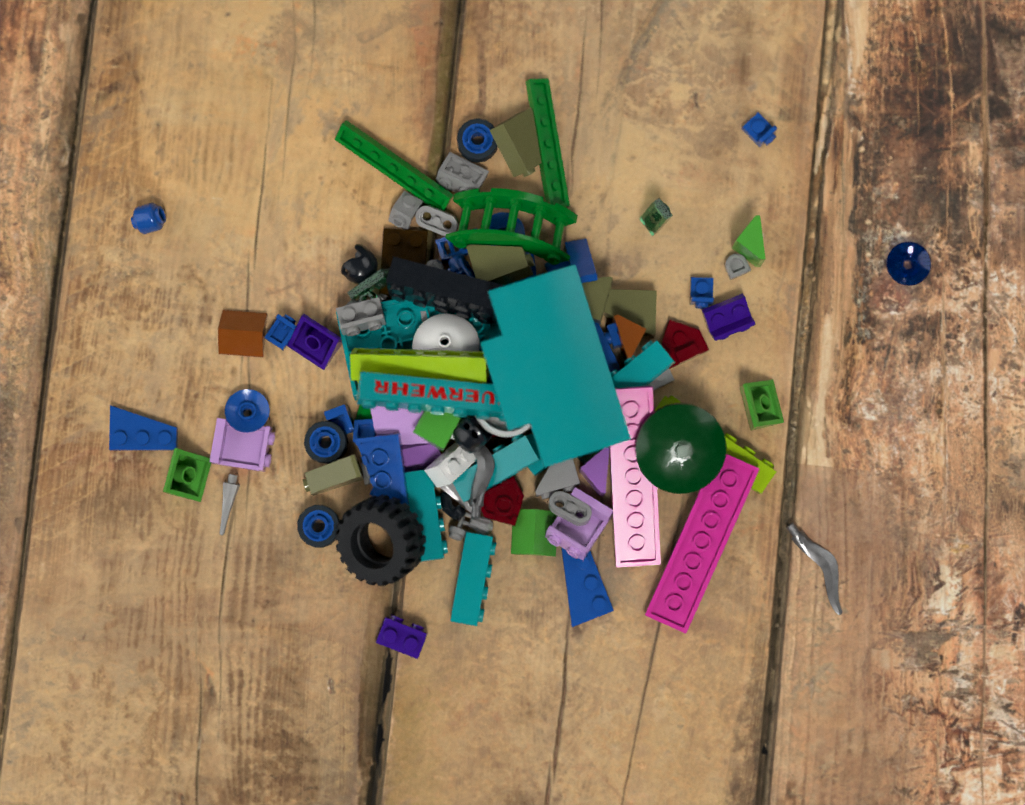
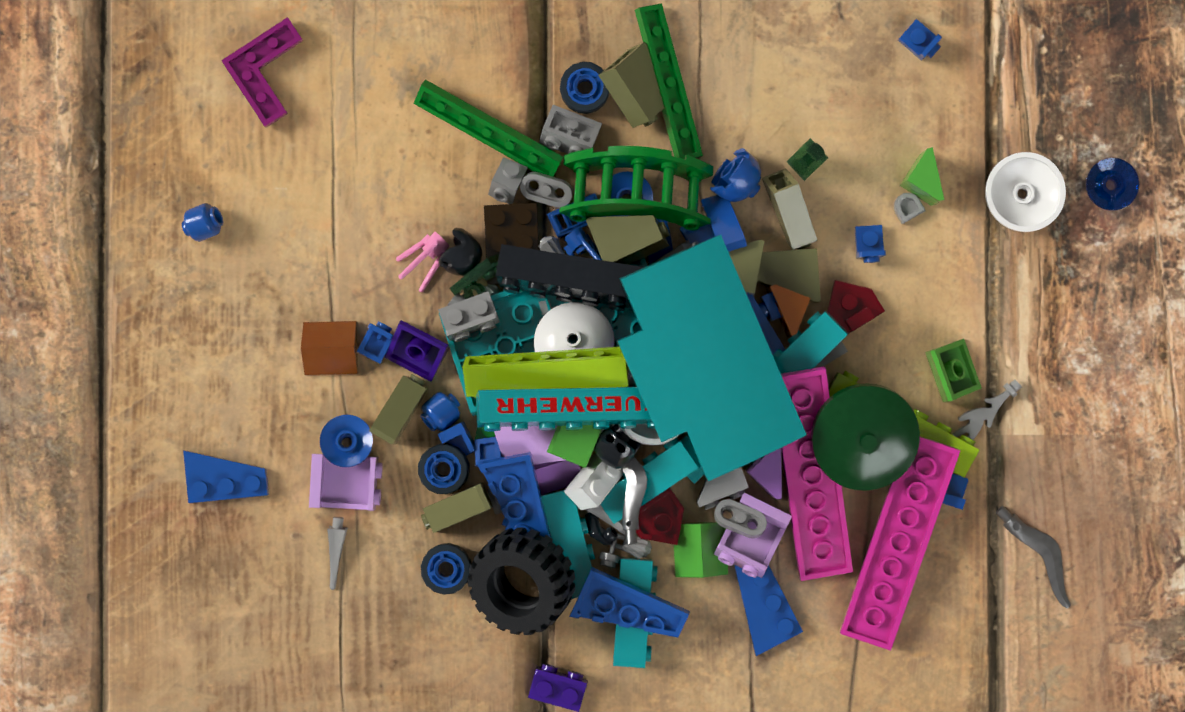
camera: 10 degrees left, 5 degrees up
(187, 475) = (284, 524): bright green slope -> none
(207, 87) = (247, 61): none -> magenta plate
(294, 388) = (399, 409): none -> olive slope
(328, 394) = (440, 411): none -> blue head
(337, 258) = (434, 246): none -> bright pink plant
(462, 568) = (618, 602): none -> blue wing
(597, 226) = (737, 178): none -> blue cylinder
(638, 257) = (790, 209): none -> slope
(728, 317) = (904, 271): dark purple bracket -> none
(752, 505) = (956, 491): none -> blue panel
(778, 445) = (978, 415): none -> light grey piece
(842, 249) = (1043, 189): none -> white dish

